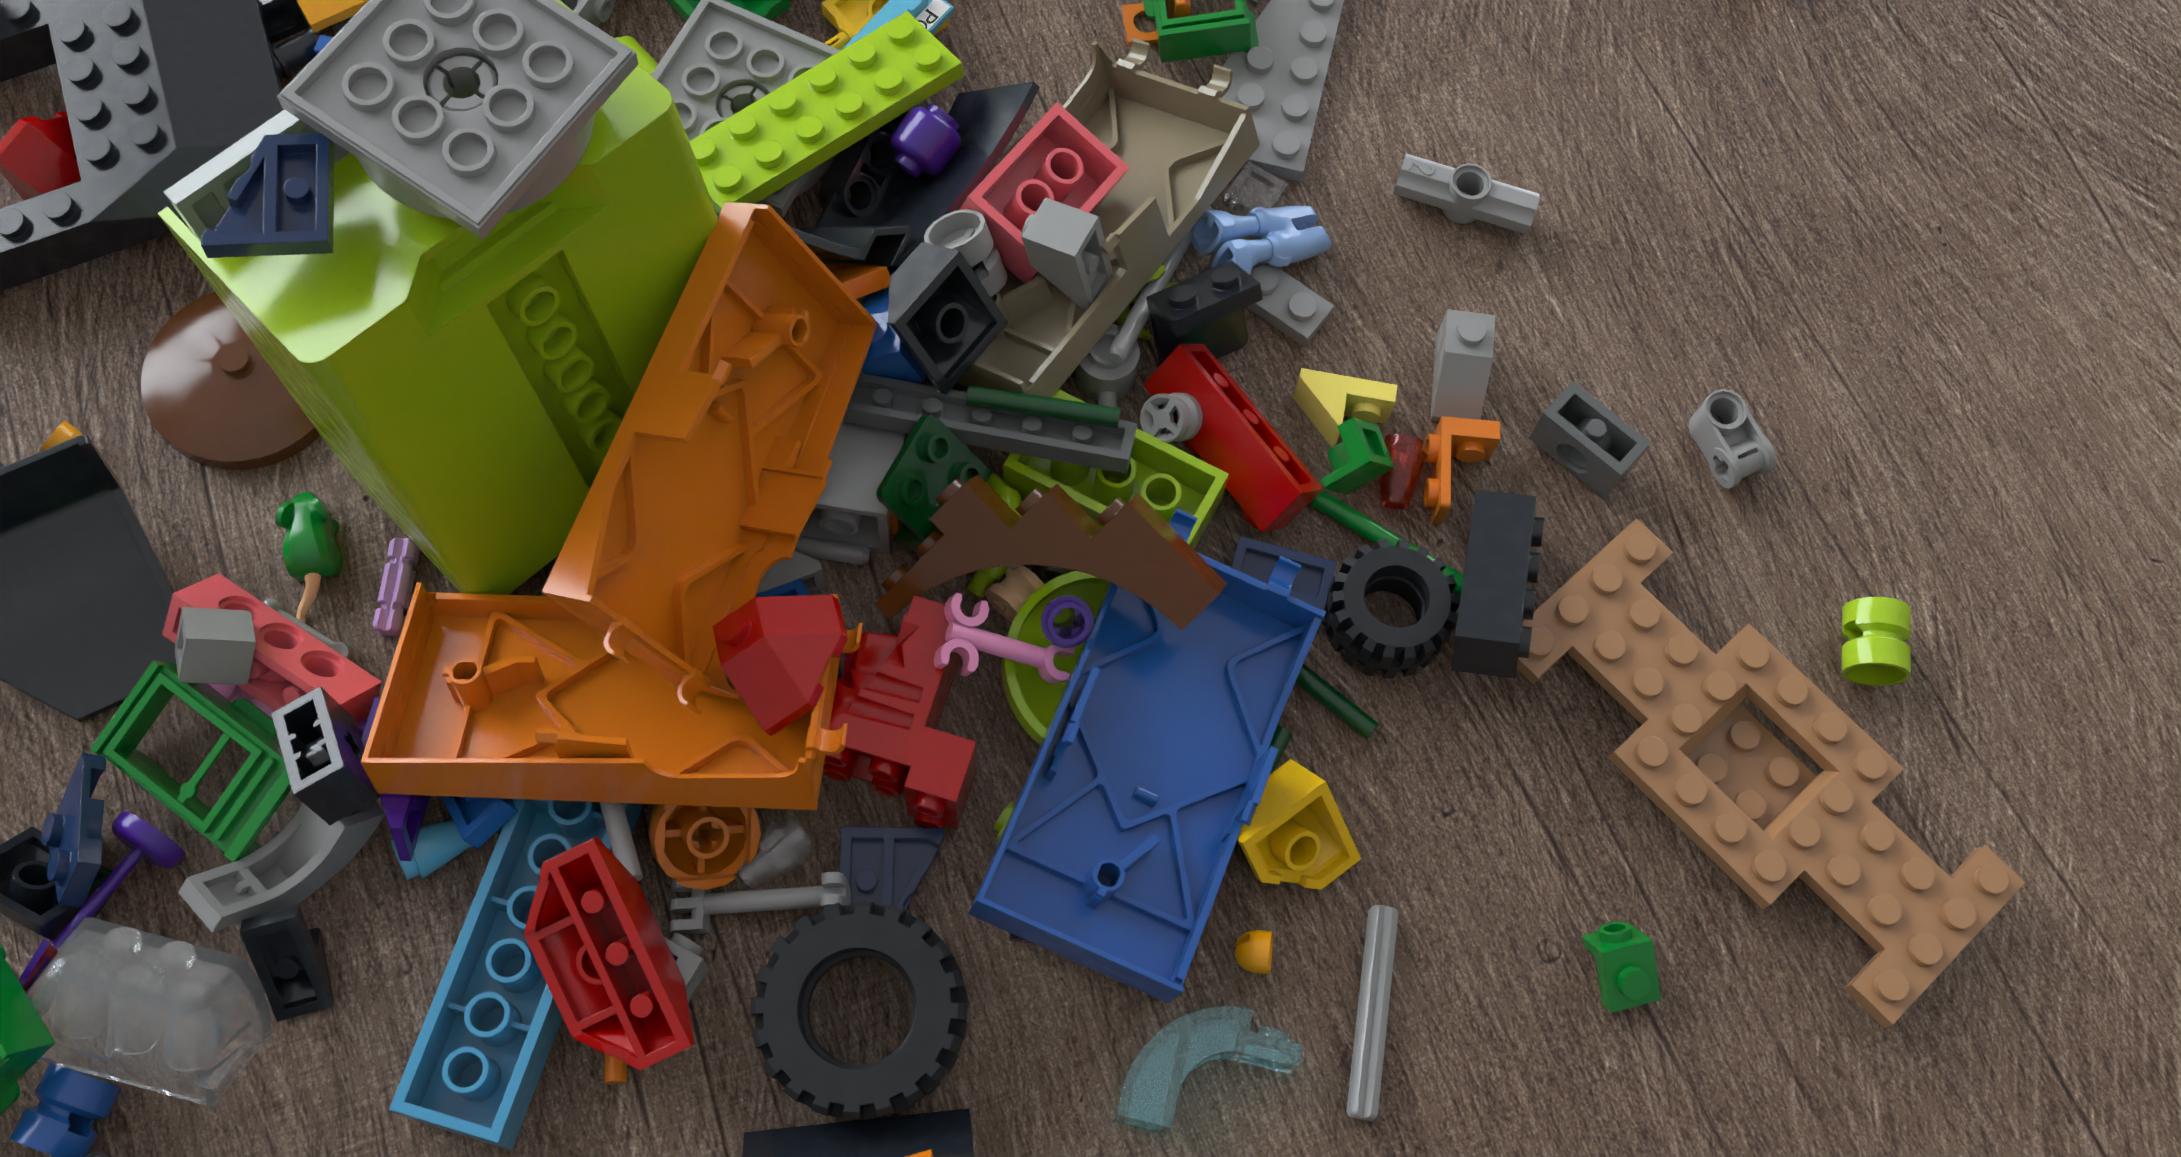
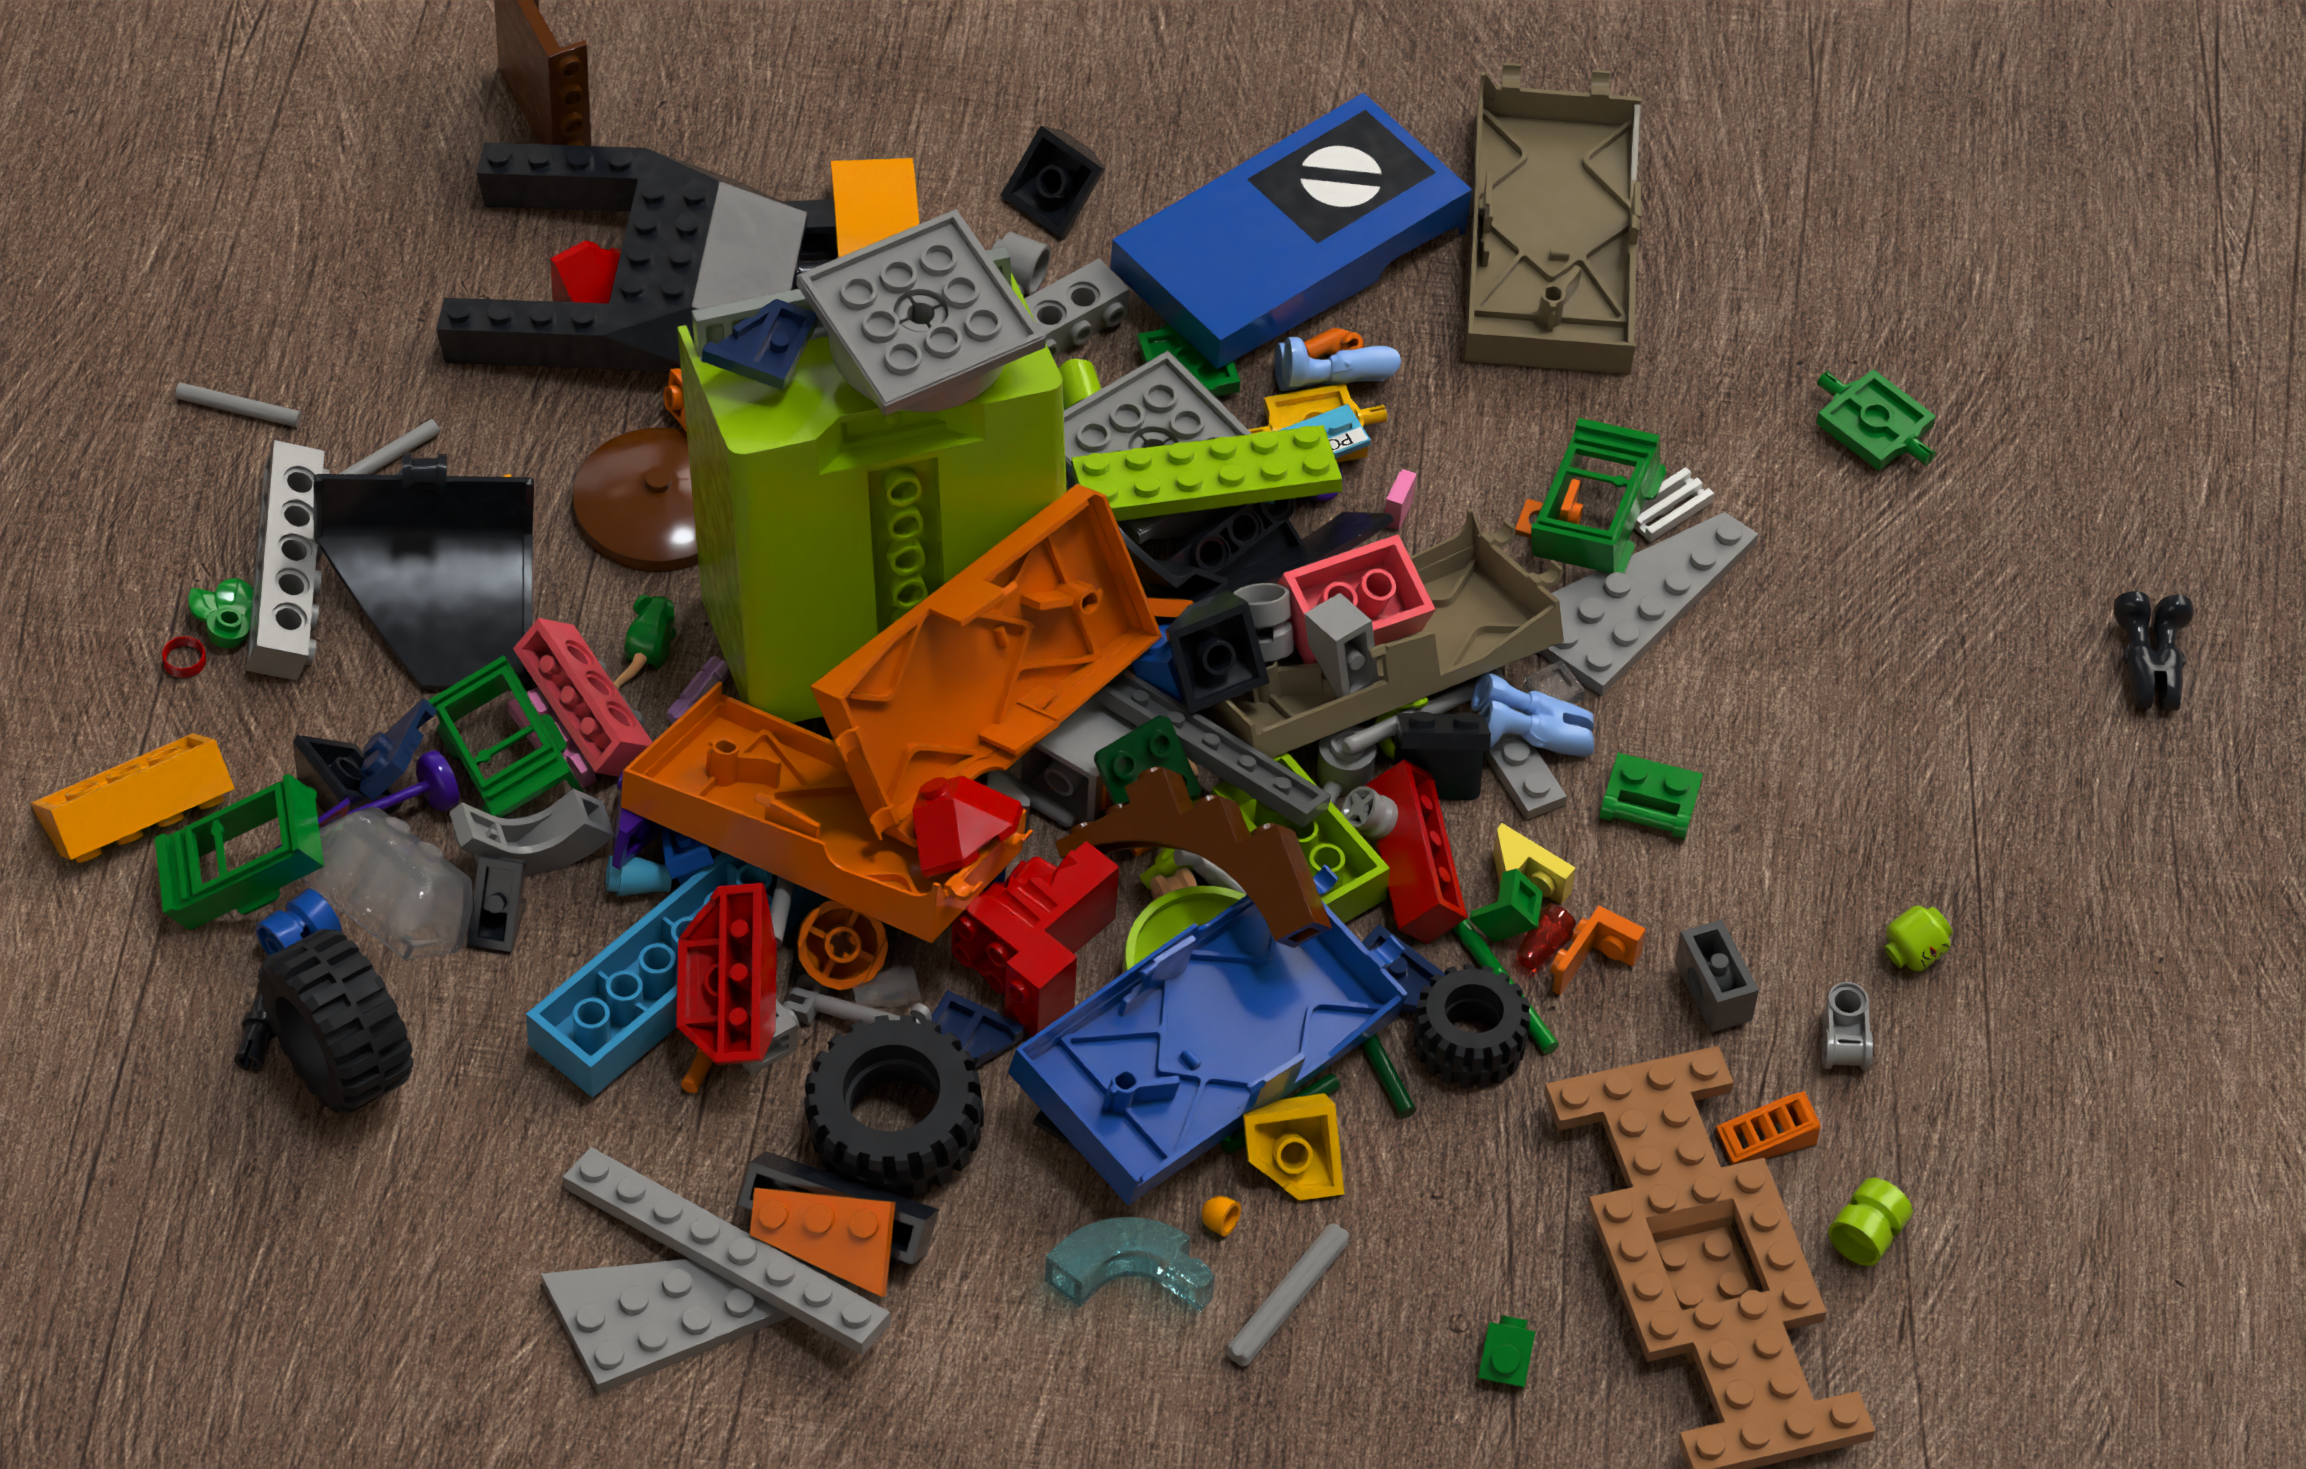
camera: 30 degrees right, 15 degrees down
(214, 646) = (551, 665): light grey panel -> none
(323, 755) = (596, 765): black brick -> none
(925, 141) = (1284, 530): dark purple head -> none
(966, 640) = (1110, 883): bright pink bar -> none
(1007, 55) = (1400, 498): none -> bright pink tile
(1043, 406) = (1262, 751): dark green bar -> none
(1074, 629) = (1186, 897): dark purple cone -> none
(1408, 256) = (1655, 787): none -> green plate
(1462, 364) = (1648, 878): light grey slope -> none
(1489, 199) = (1734, 756): light grey piece -> none
(1494, 585) = (1563, 1035): black brick -> none
(1737, 309) = (1918, 938): none -> lime head
(1740, 558) = (1780, 1111): none -> orange slope

